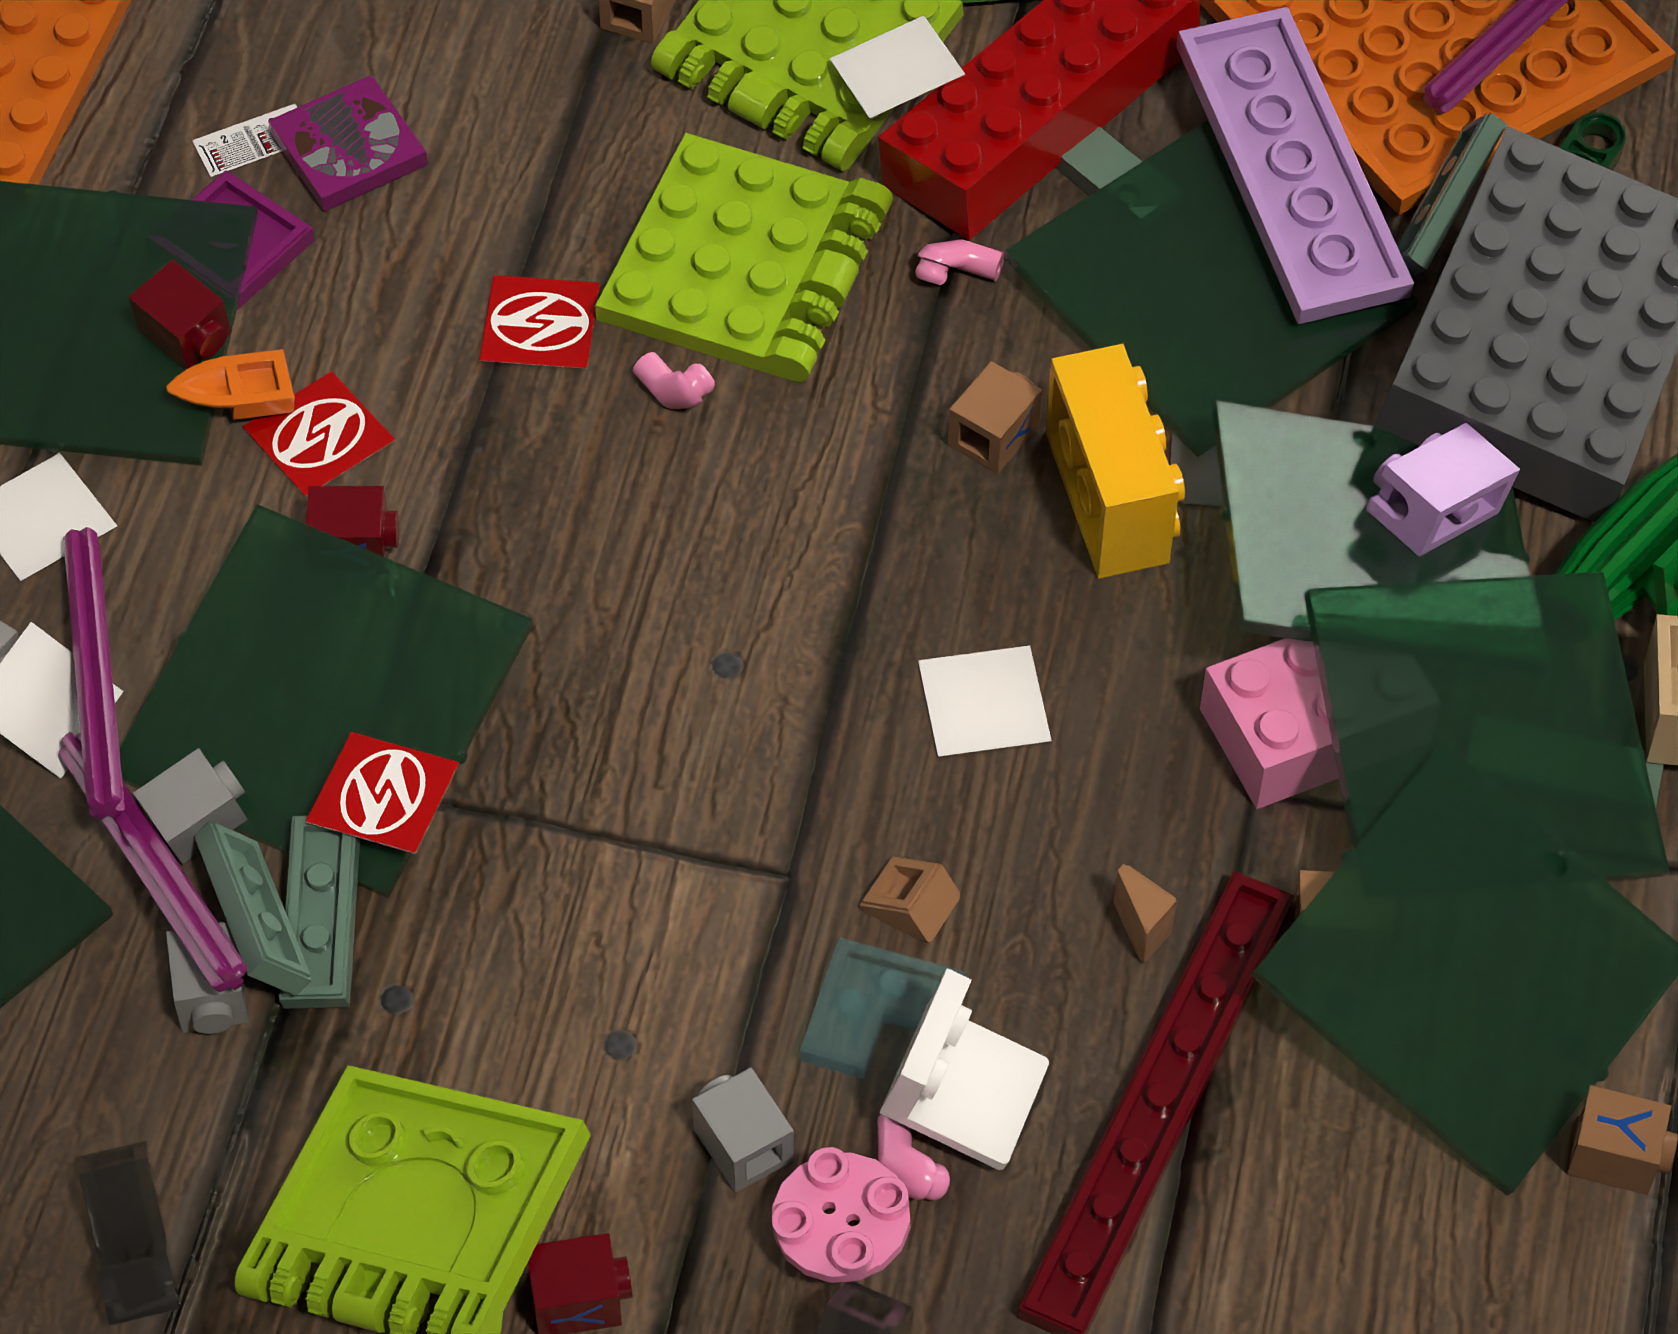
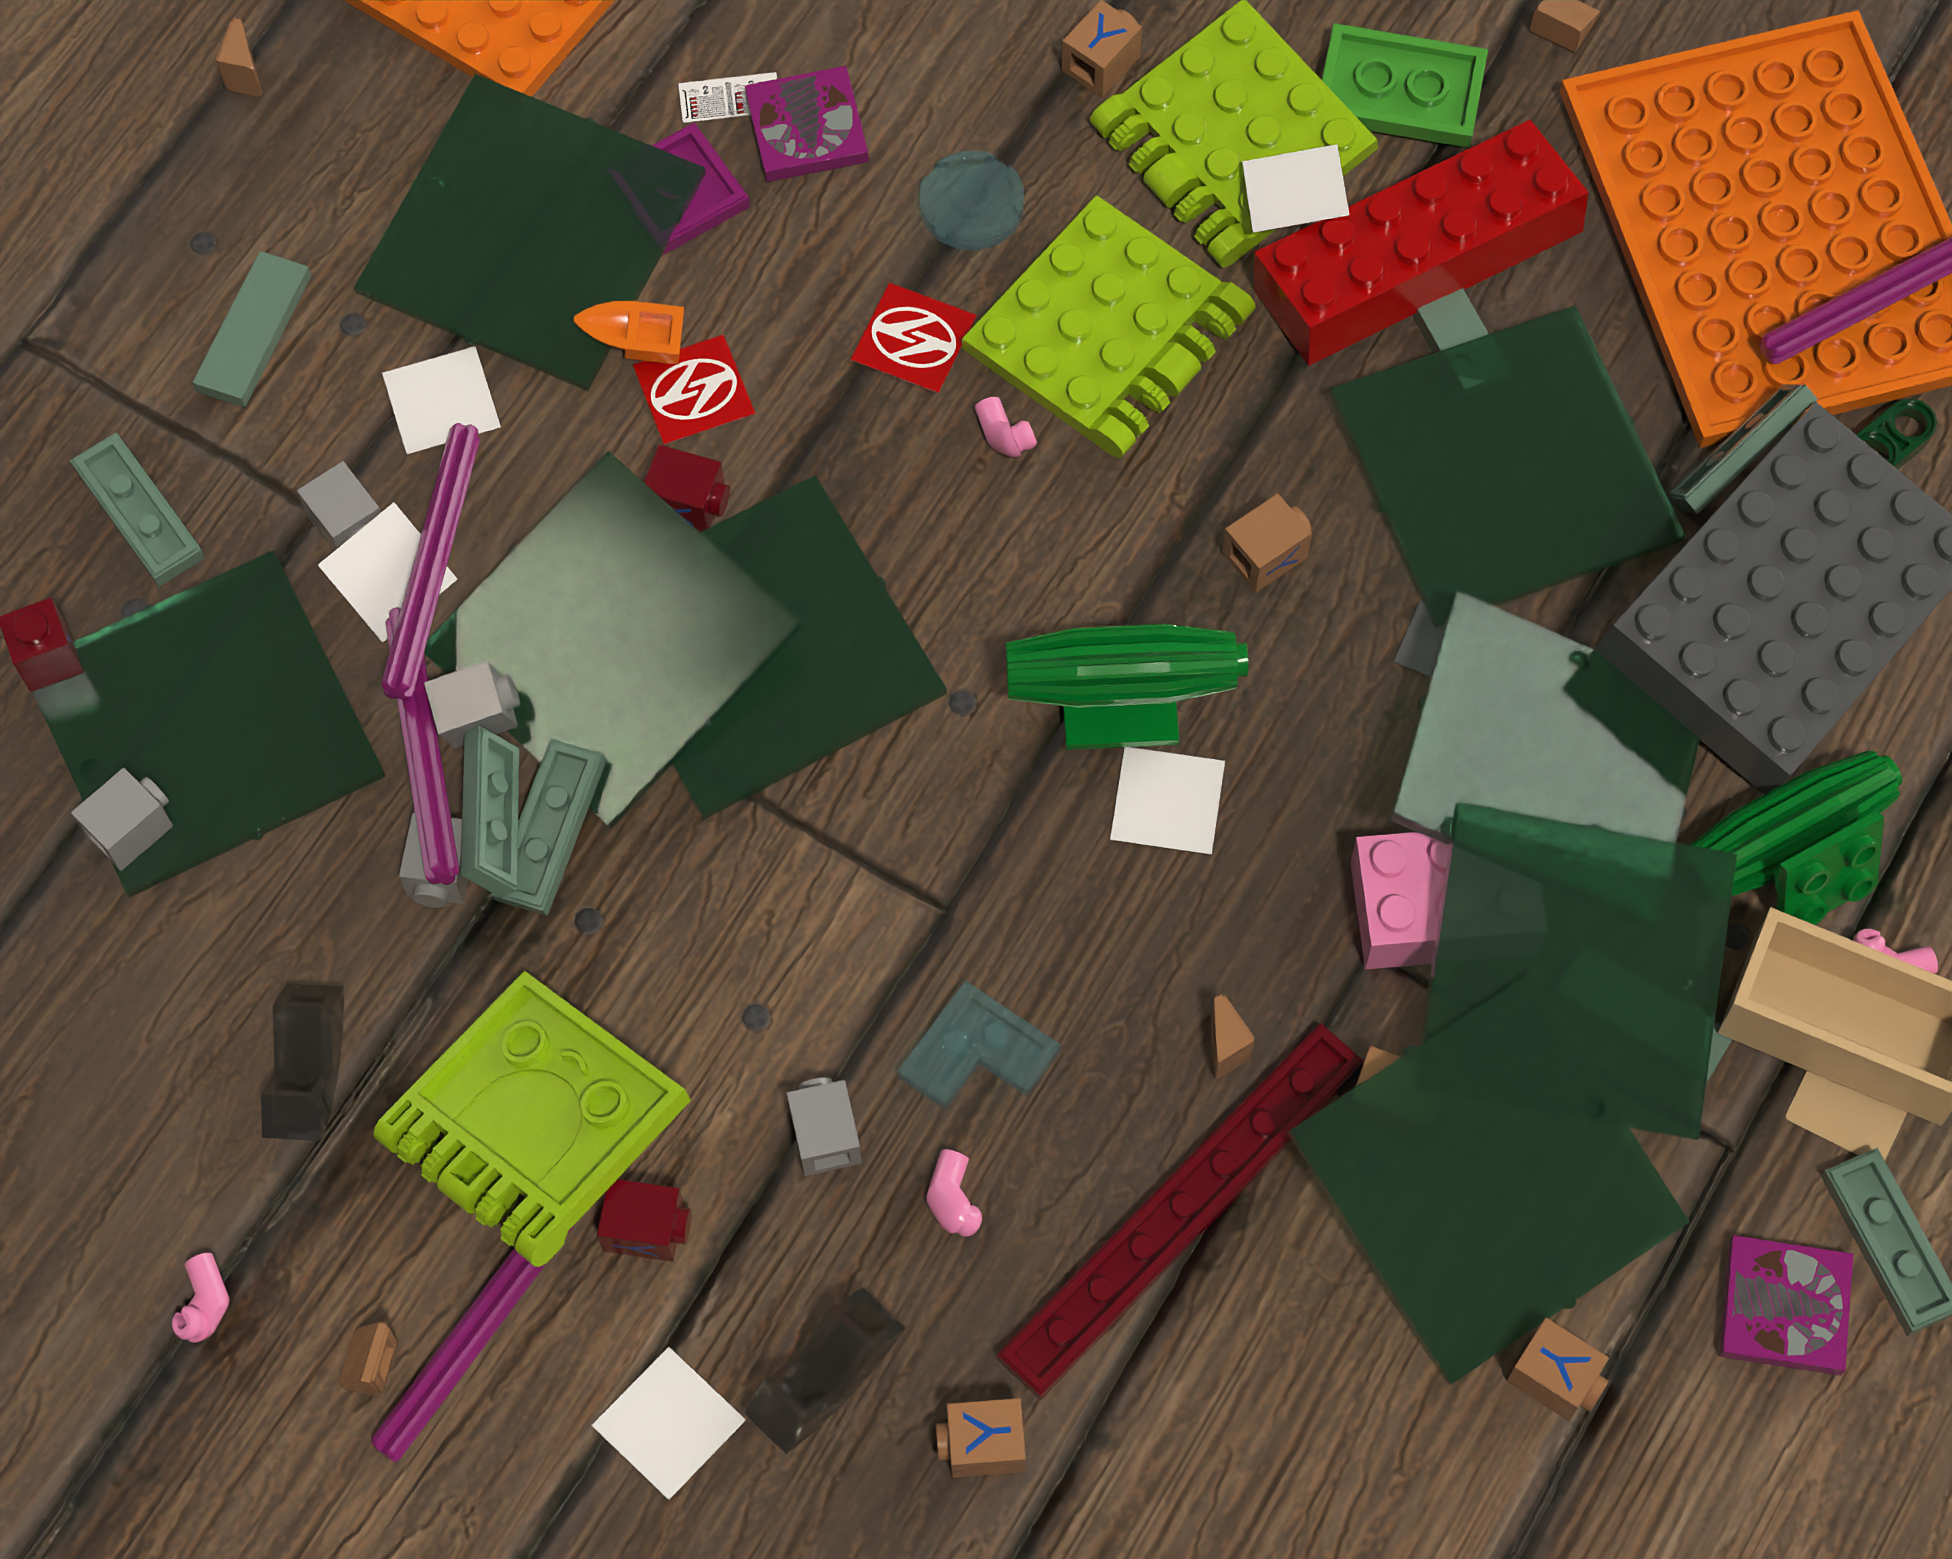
camera: 20 degrees right, 10 degrees up
(180, 315) = (605, 254): dark red brick -> none
(382, 792) = (629, 740): red sticker -> none
(553, 173) = (971, 200): none -> clear light blue tile
(579, 680) = (836, 677): none -> clear green piece
(857, 1190) = (895, 1214): bright pink plate -> none
(898, 581) = (1123, 679): none -> green plate
(912, 897) = (1041, 962): medium nougat slope -> none
(960, 255) = (1293, 377): bright pink arm -> none
(964, 1080) = (1021, 1144): white bracket -> none
(1113, 460) = (1351, 617): yellow brick -> none
(1294, 165) = (1616, 378): lavender plate -> none
(1441, 488) = (1625, 731): lavender brick -> none

